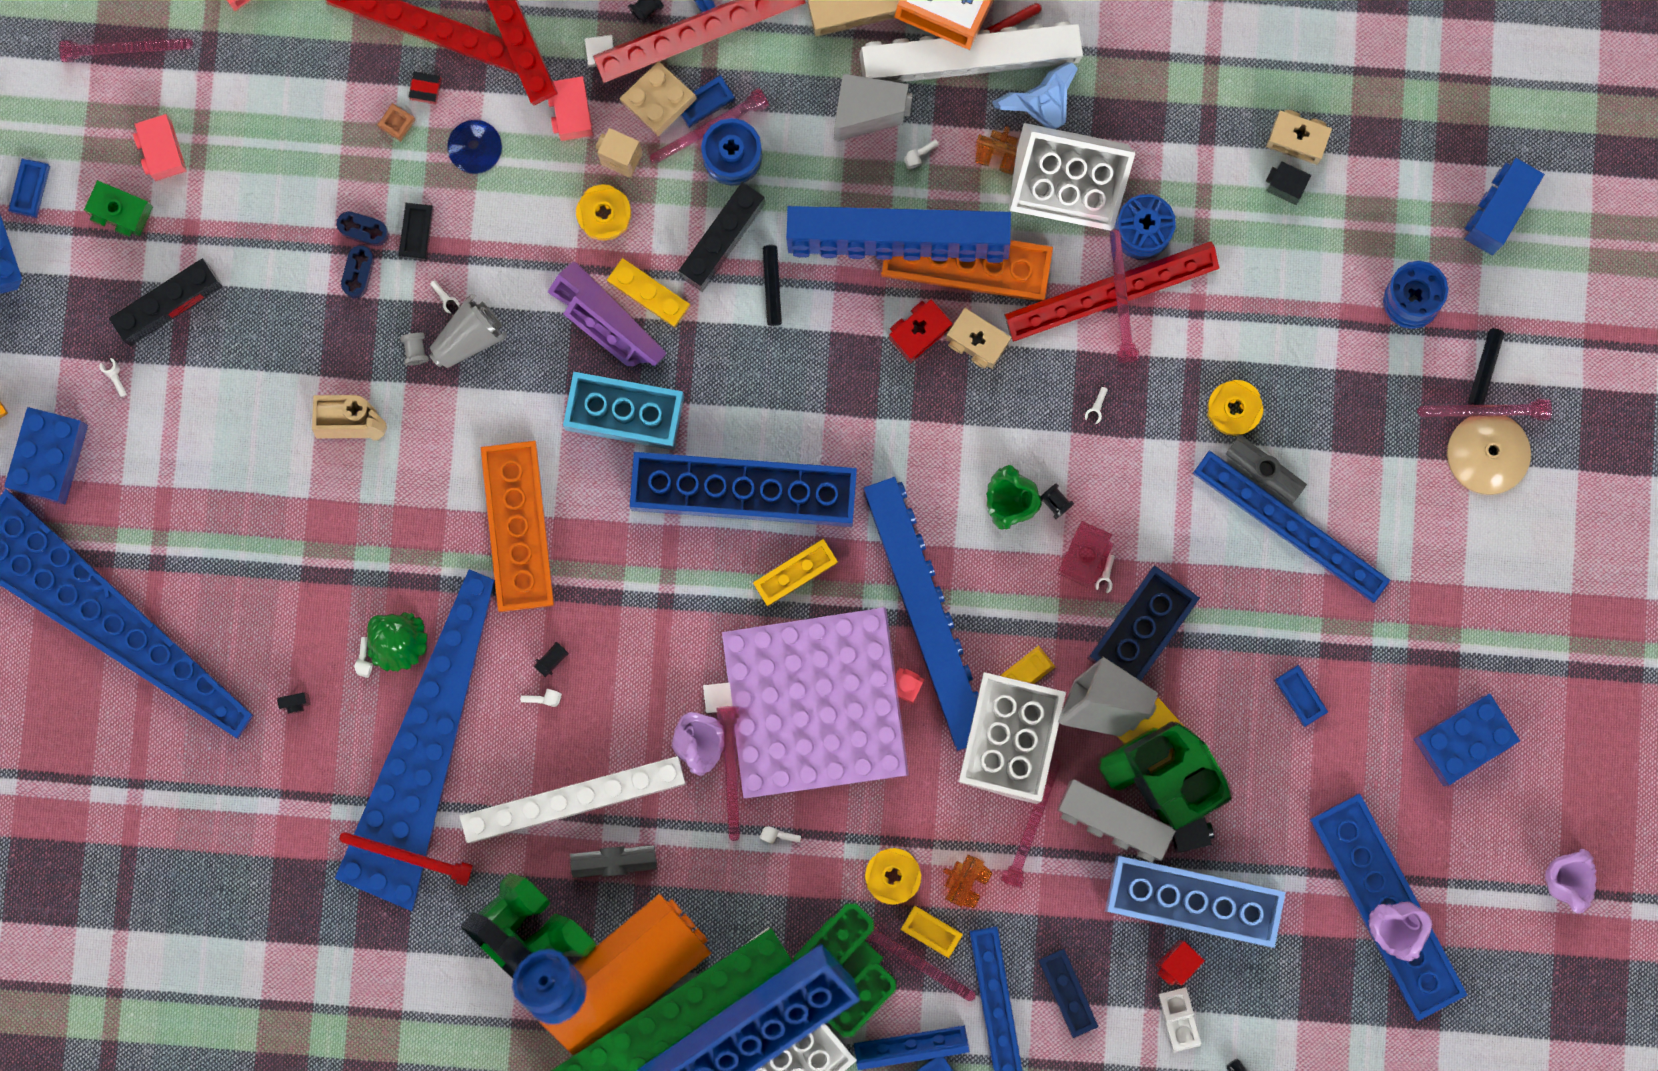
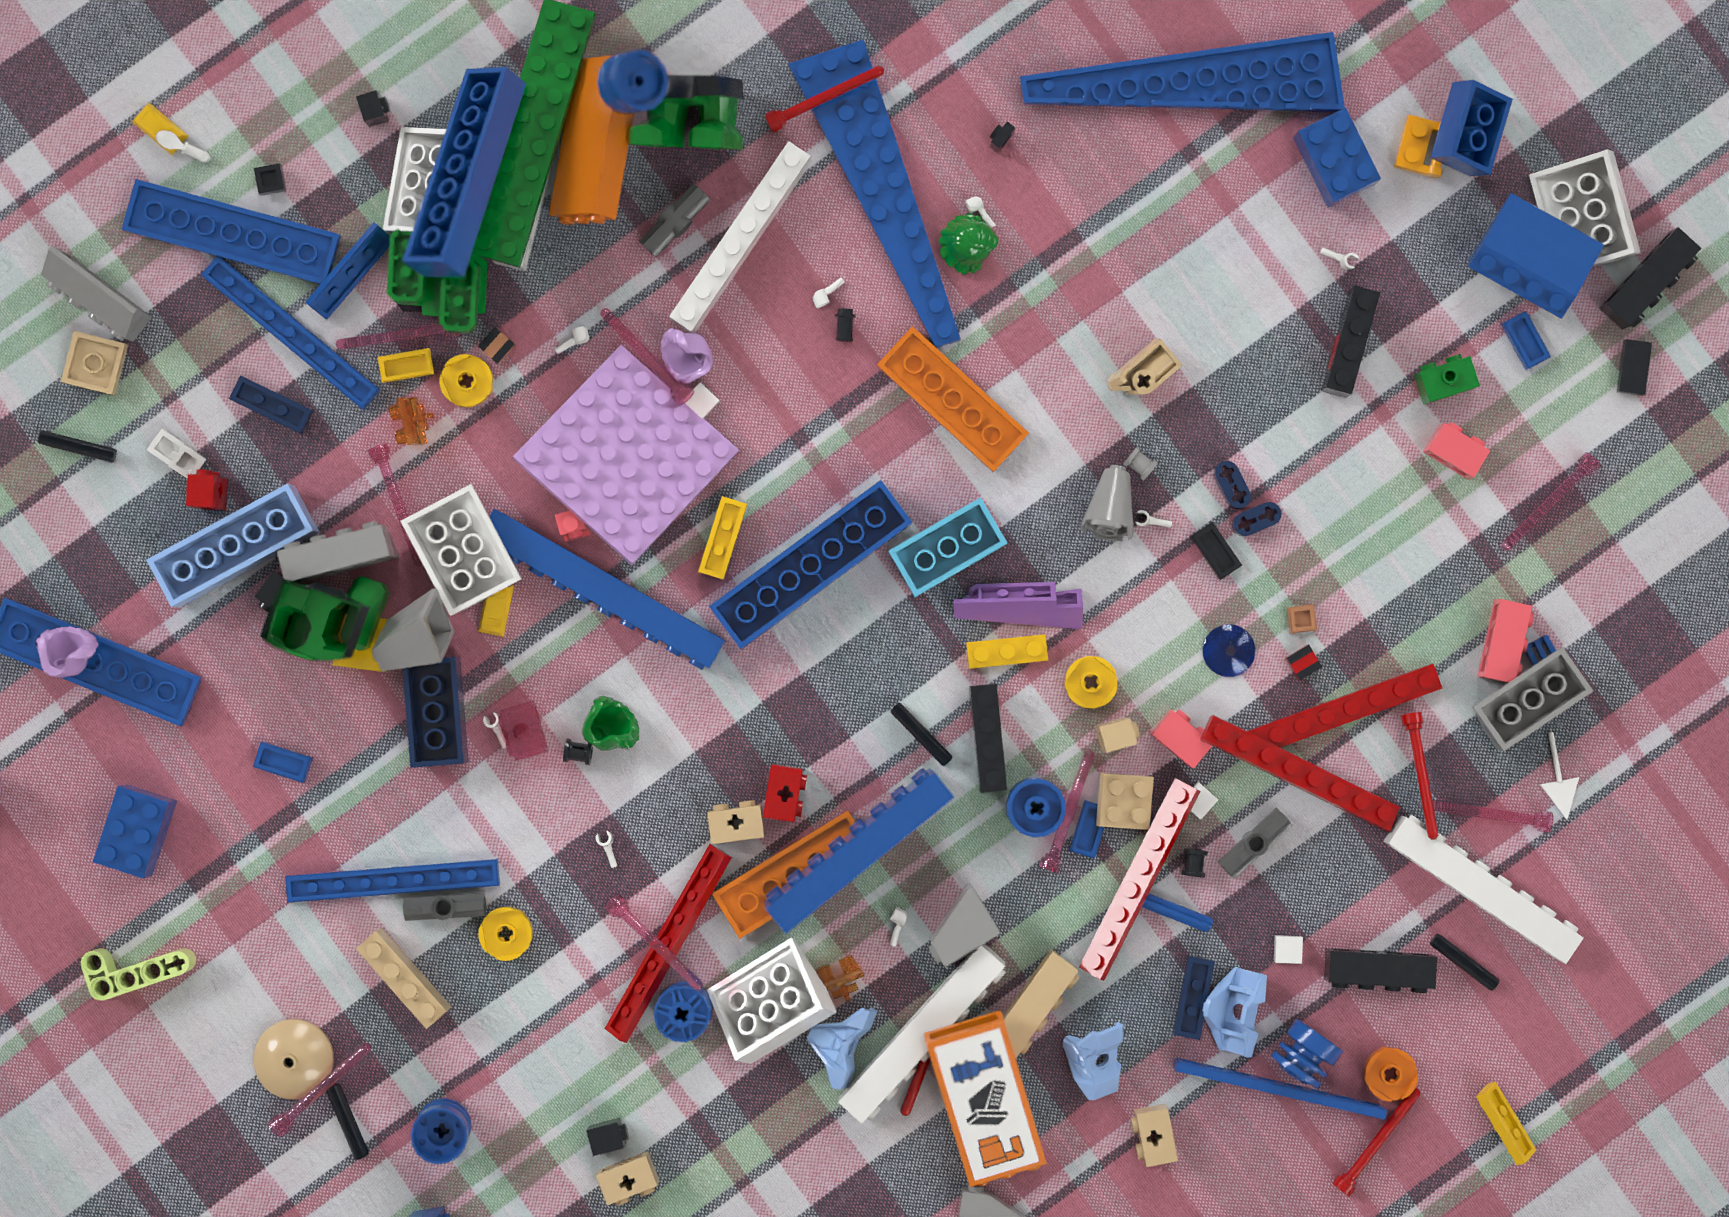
camera: 140 degrees right, 5 degrees up
(844, 884) = (496, 345): none -> tile
(1346, 440) = (403, 978): none -> tan brick
(1553, 626) = (141, 972): none -> yellowish green beam

